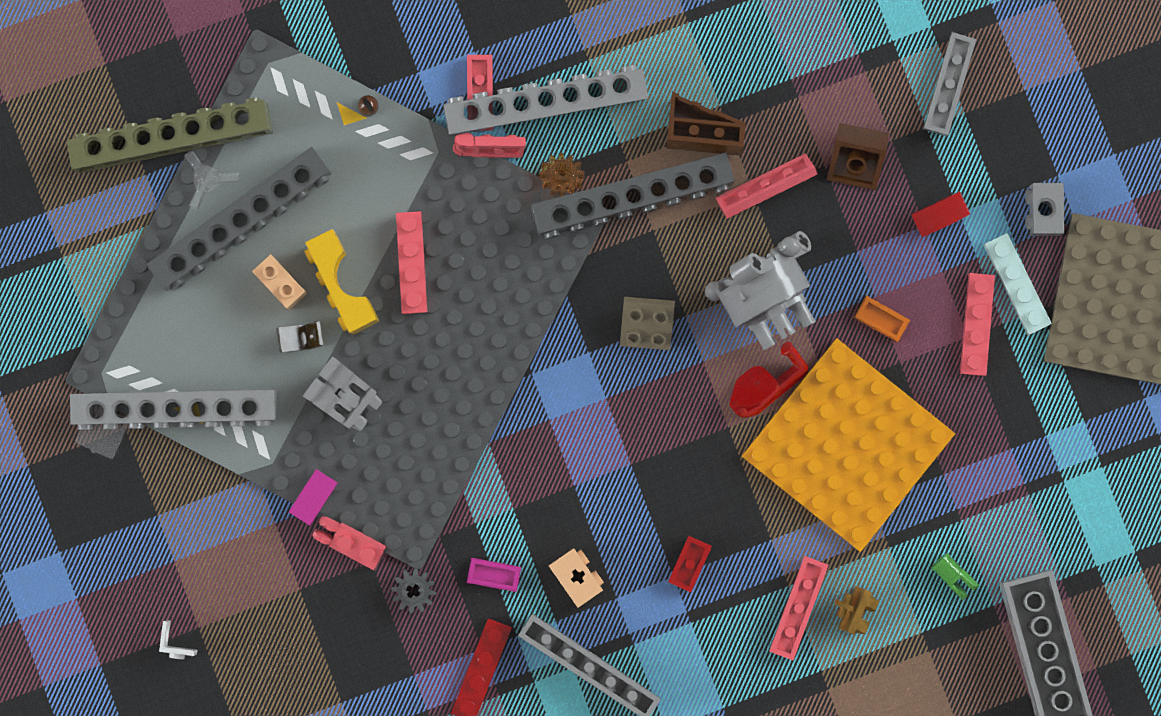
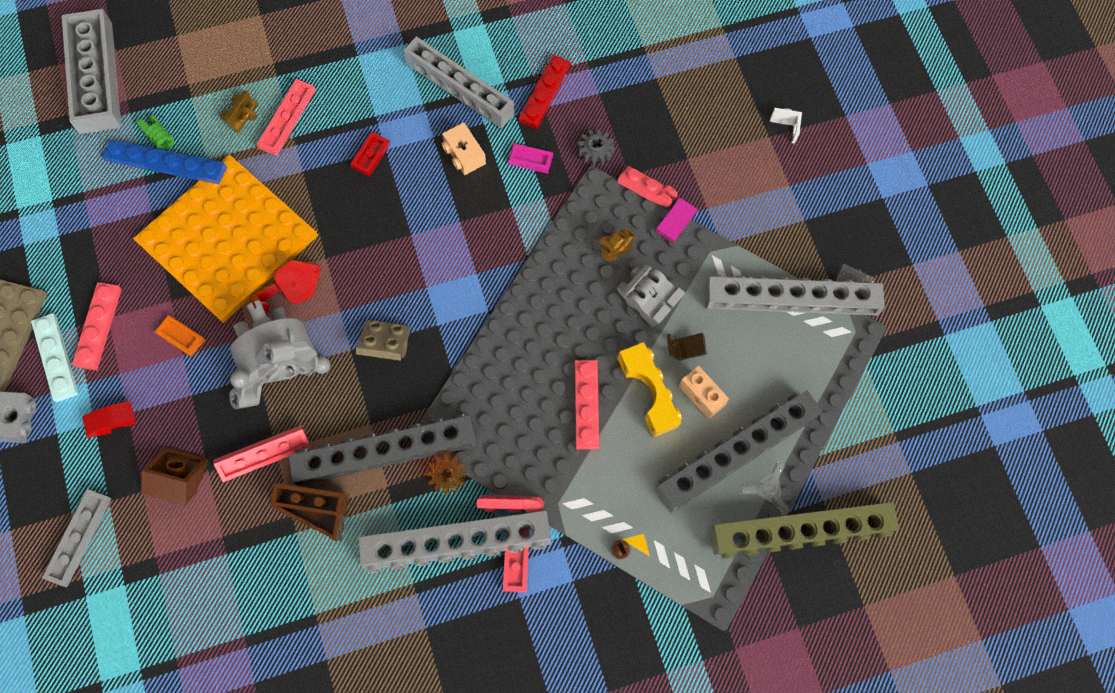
camera: 175 degrees right, 15 degrees down
(383, 455) = (617, 244): none -> pearl gold hips
(935, 534) = (164, 161): none -> blue plate

